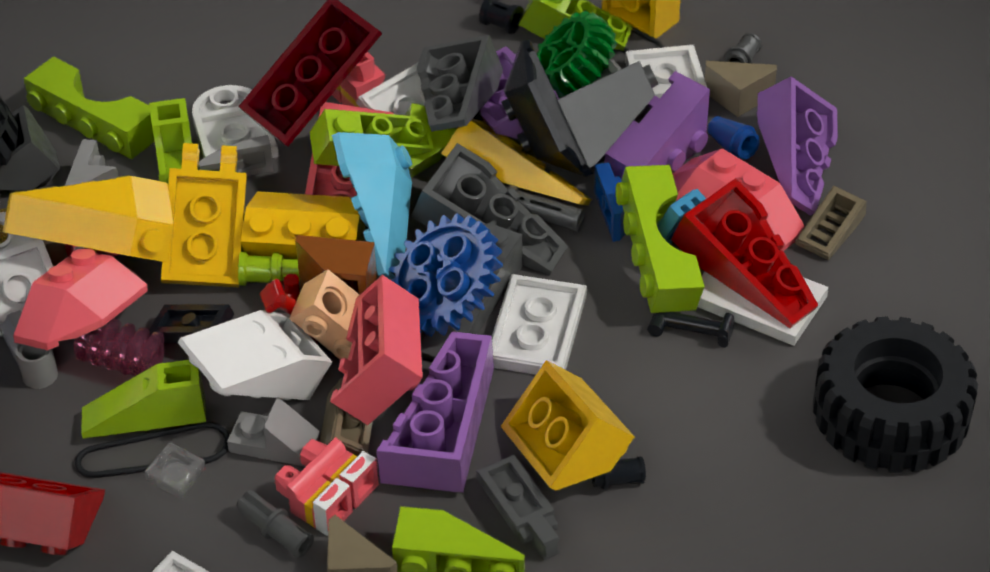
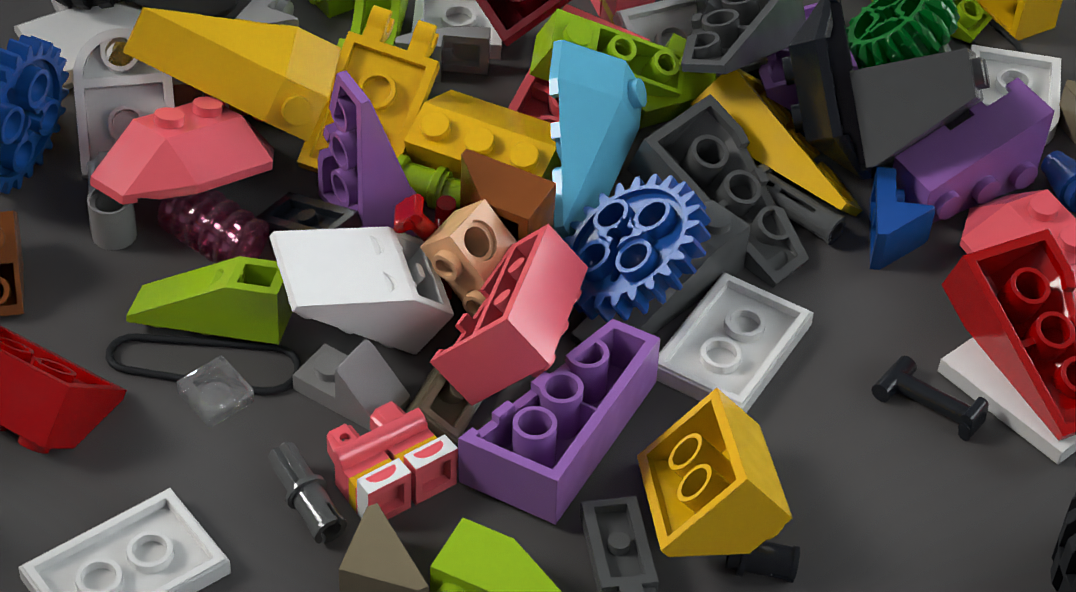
camera: 15 degrees right, 0 degrees up
(219, 265) = (360, 164): none -> medium lavender wedge
(668, 275) = (919, 327): lime arch -> none
(675, 212) = (948, 256): dark azure tile -> none

